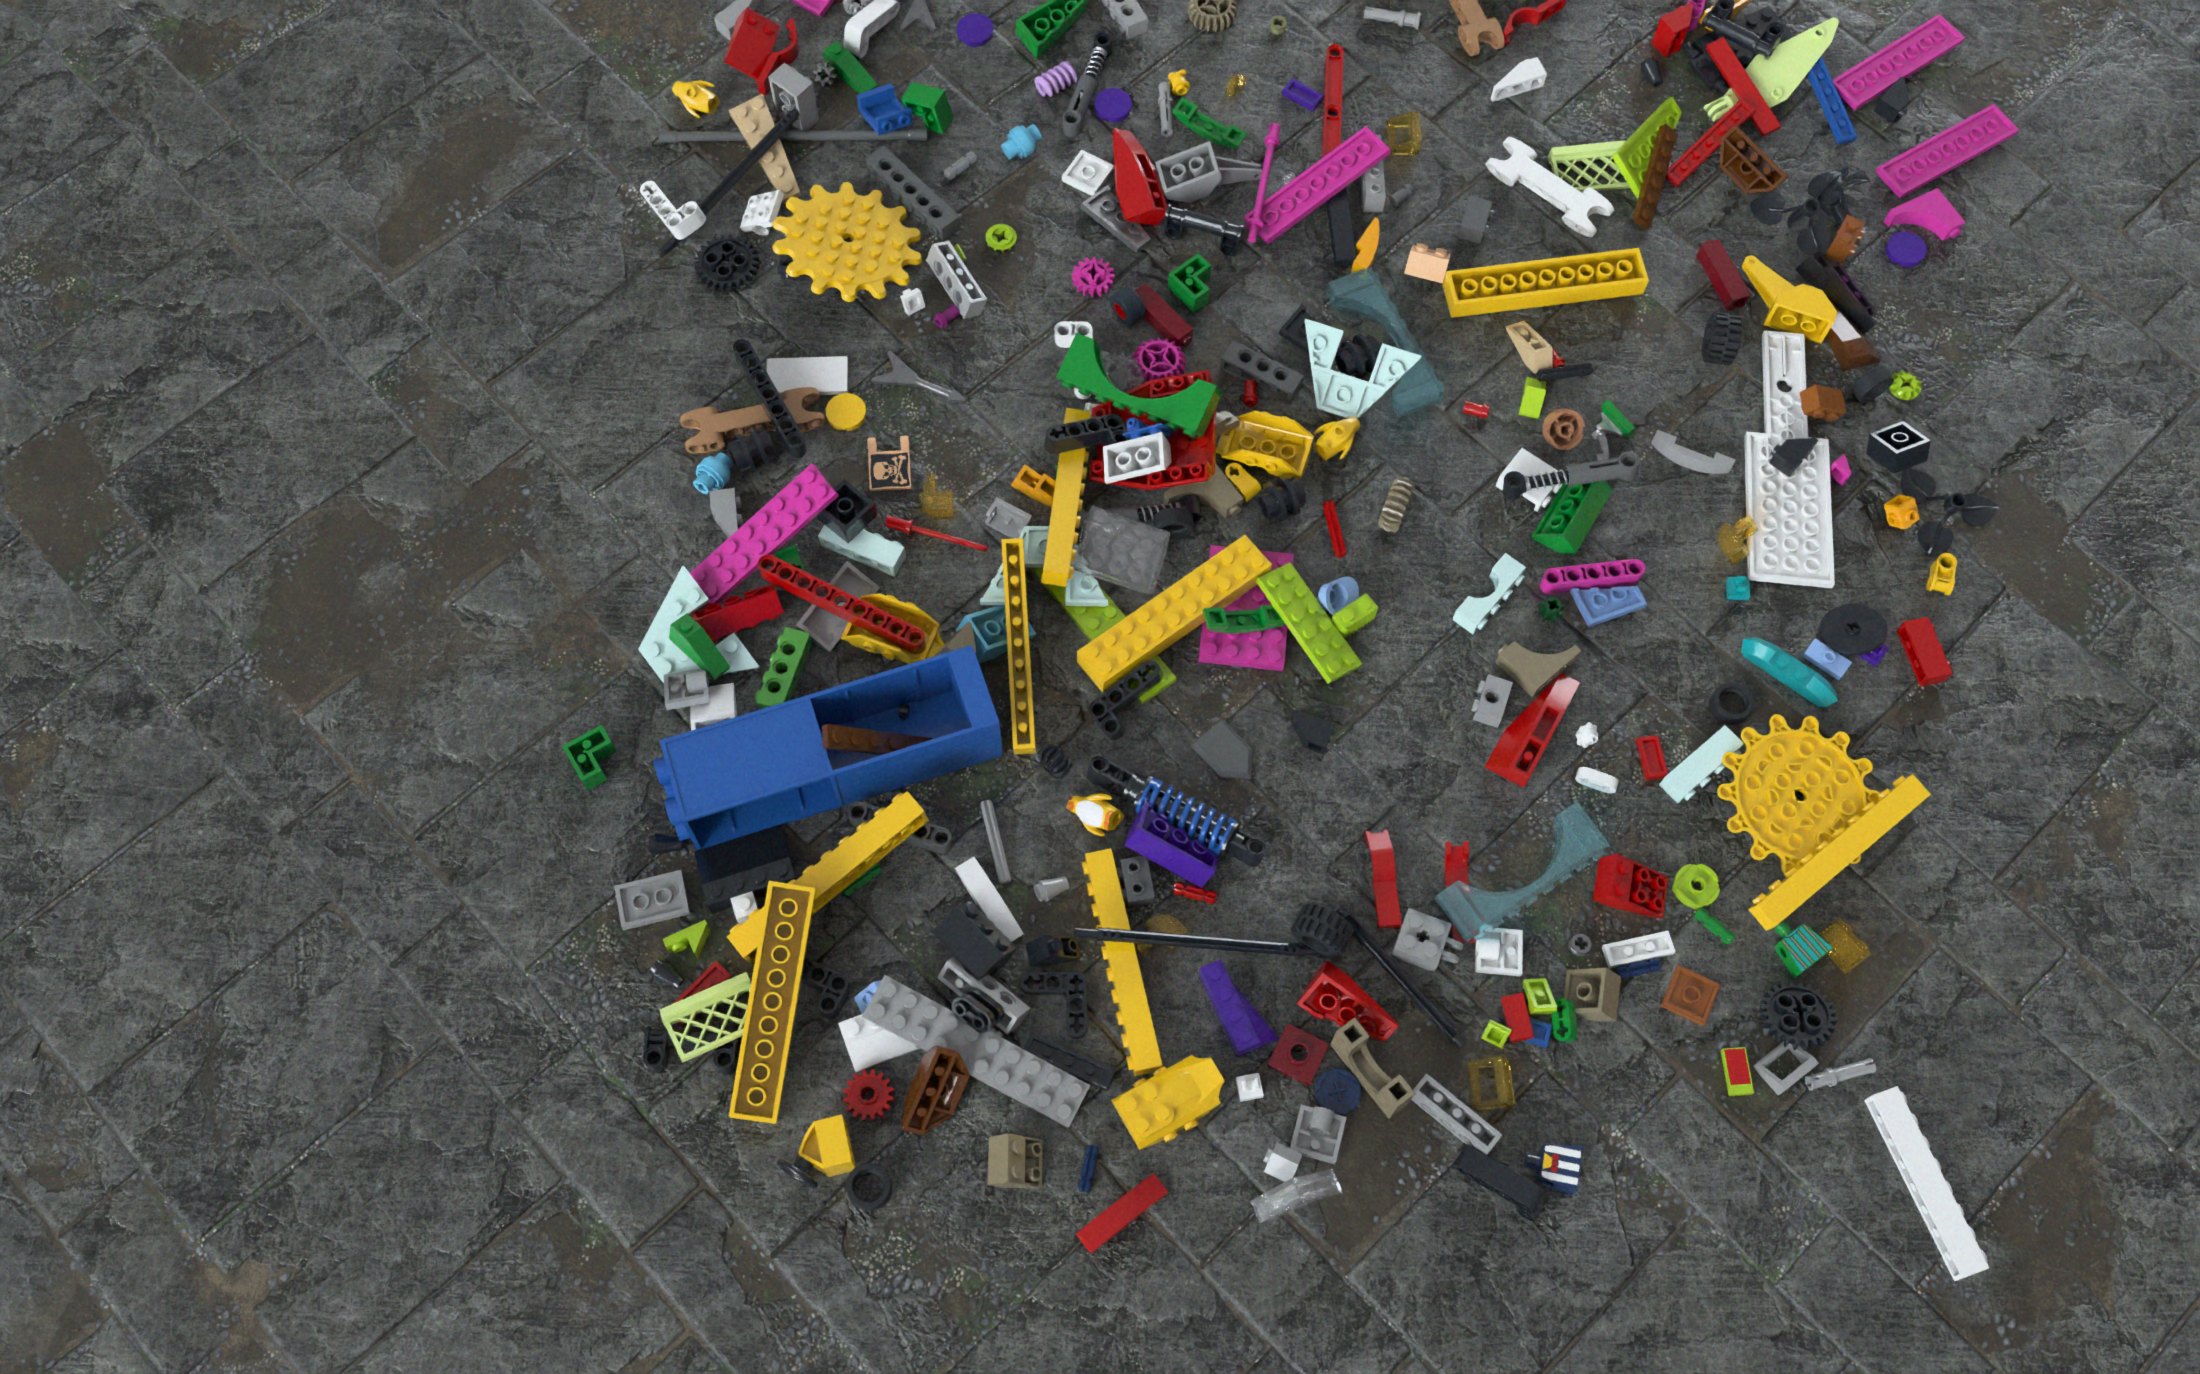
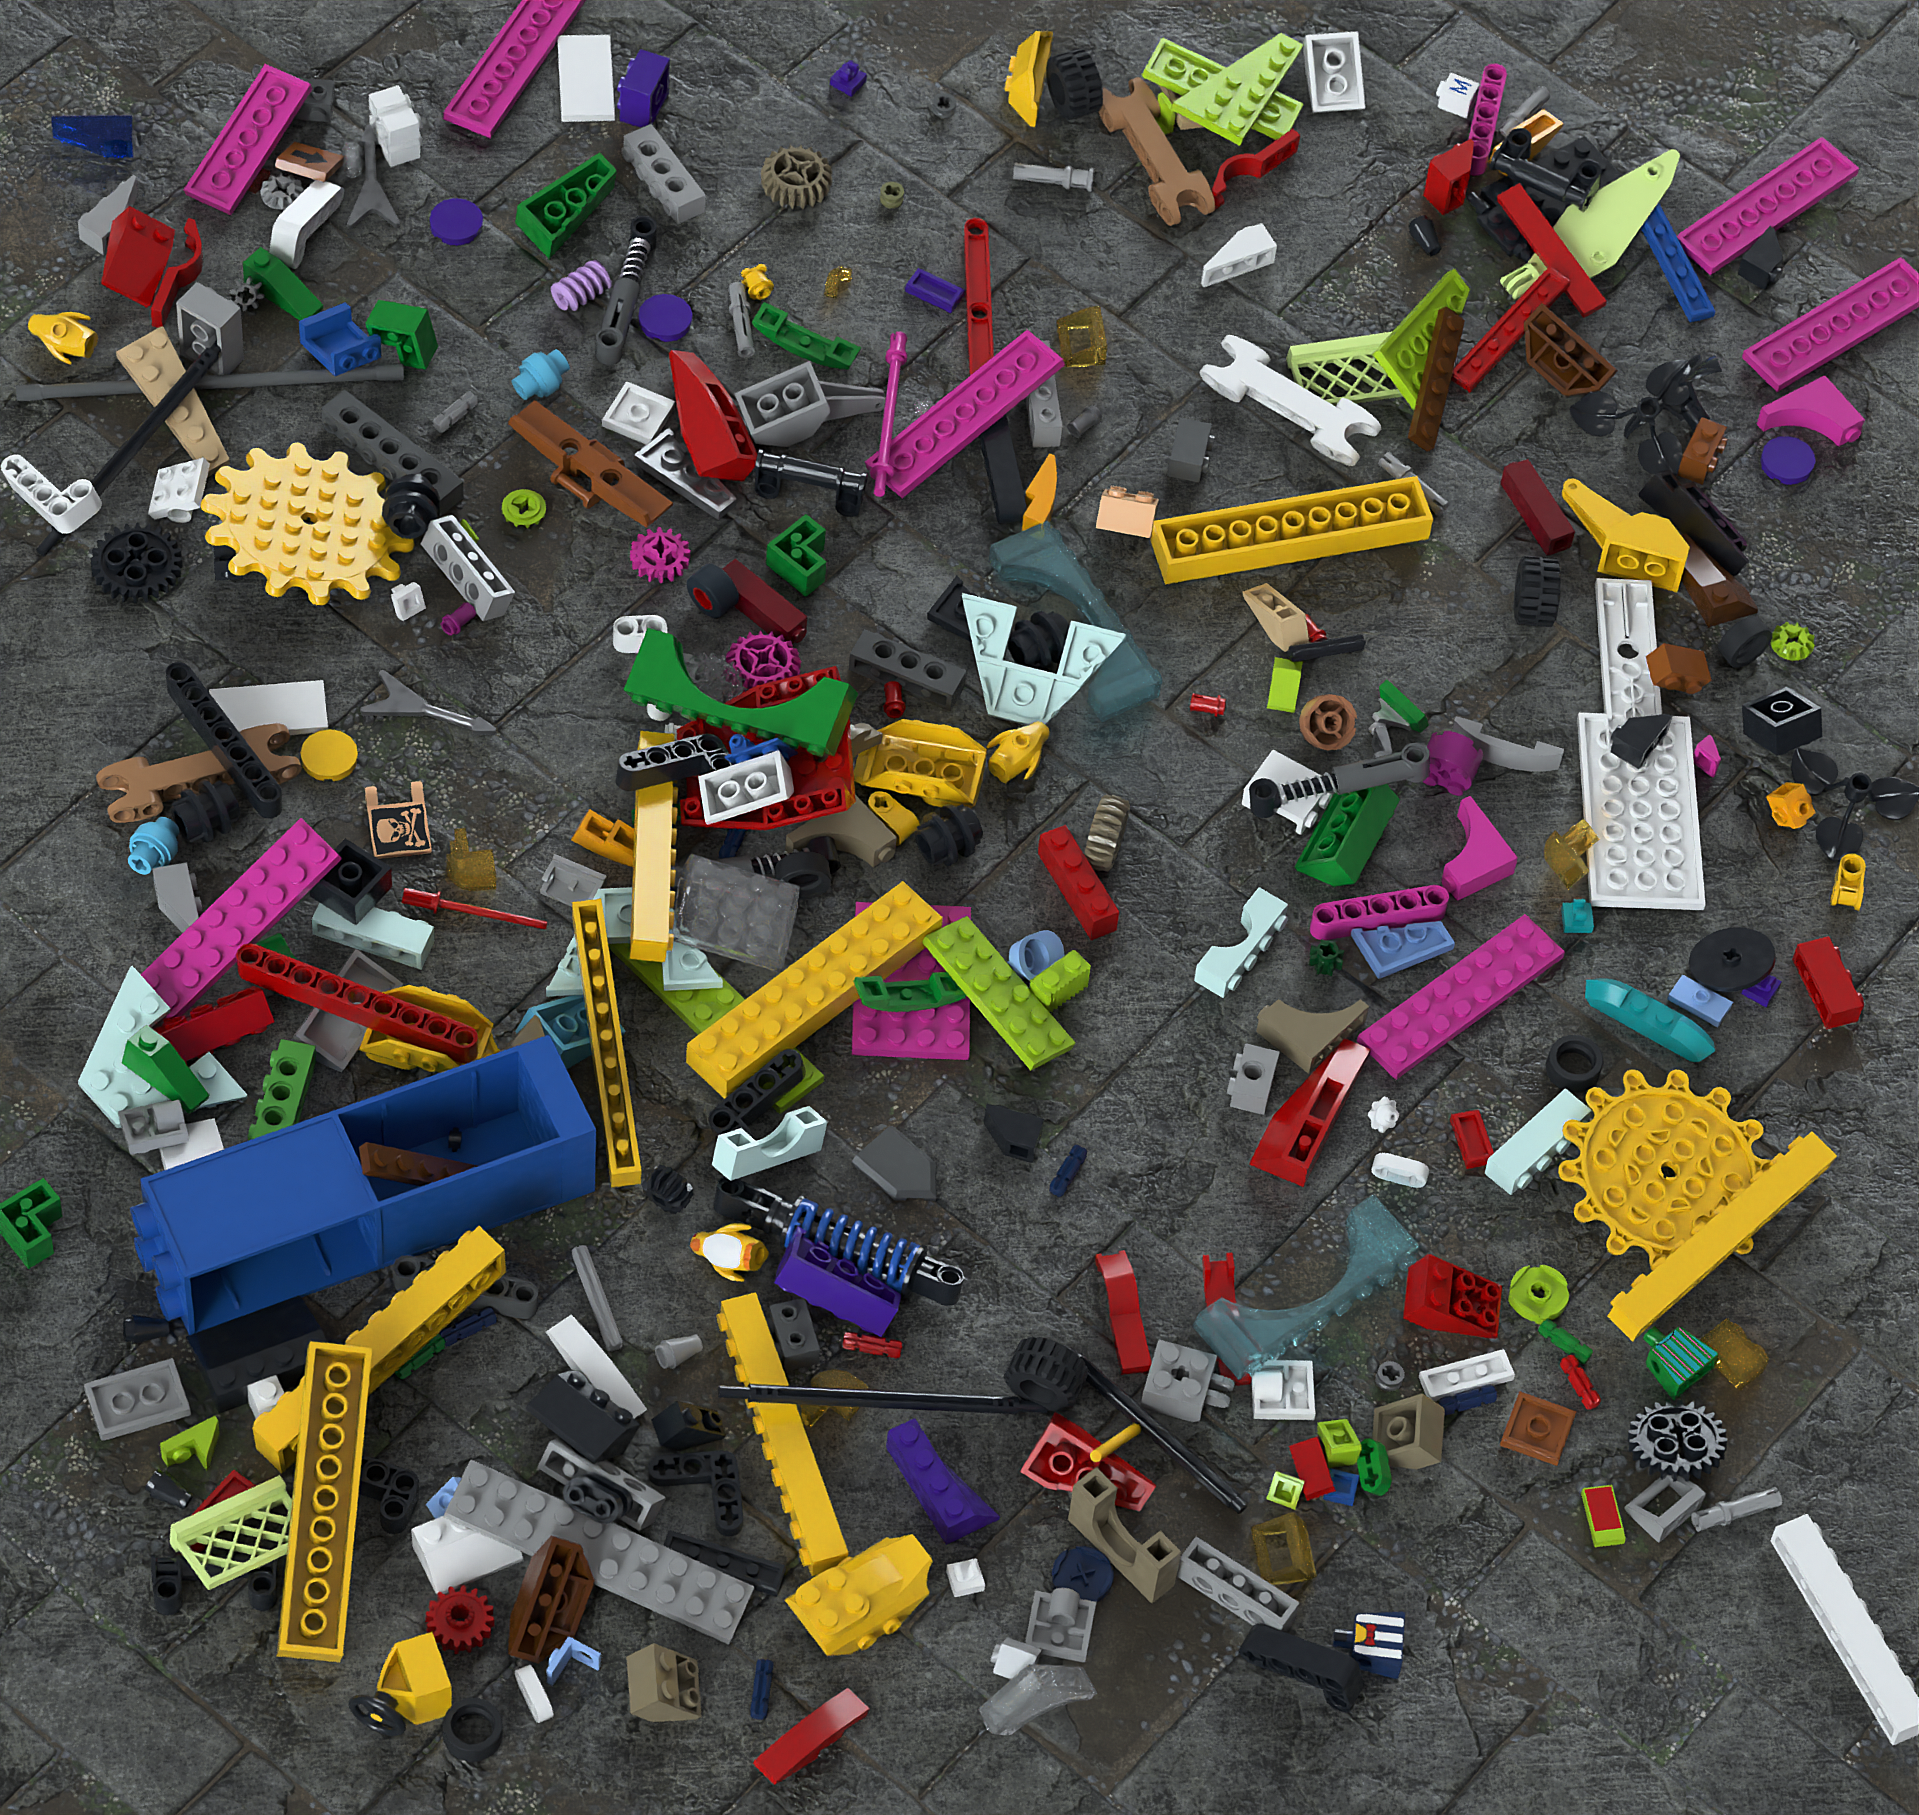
camera: 10 degrees left, 10 degrees down
(899, 857) = (468, 1326): none -> dark blue axle
(917, 1160) = (534, 1693): none -> white beam
(919, 232) = (410, 505): none -> black piece
(939, 1133) = (571, 1648): none -> light blue bracket
(1053, 205) = (553, 435): none -> dark orange piece
(1125, 495) = (732, 843): none -> dark blue axle
(1150, 726) = (795, 1137): none -> light aqua arch
(1299, 1070) = (1028, 1552): dark red piece -> none
(1334, 529) = (1024, 872): red axle -> none
(1349, 763) = (1068, 1170): none -> dark blue axle
(1370, 988) = (1115, 1442): none -> yellow bar
(1373, 540) = (1078, 882): none -> red brick
(1624, 243) = (1401, 471): none -> light grey pin
(1648, 644) = (1460, 996): none -> dark pink plate
(1654, 464) = (1452, 762): none -> magenta brick
(1672, 537) = (1483, 859): none -> dark pink arch
(1724, 960) = (1580, 1382): none -> red axle

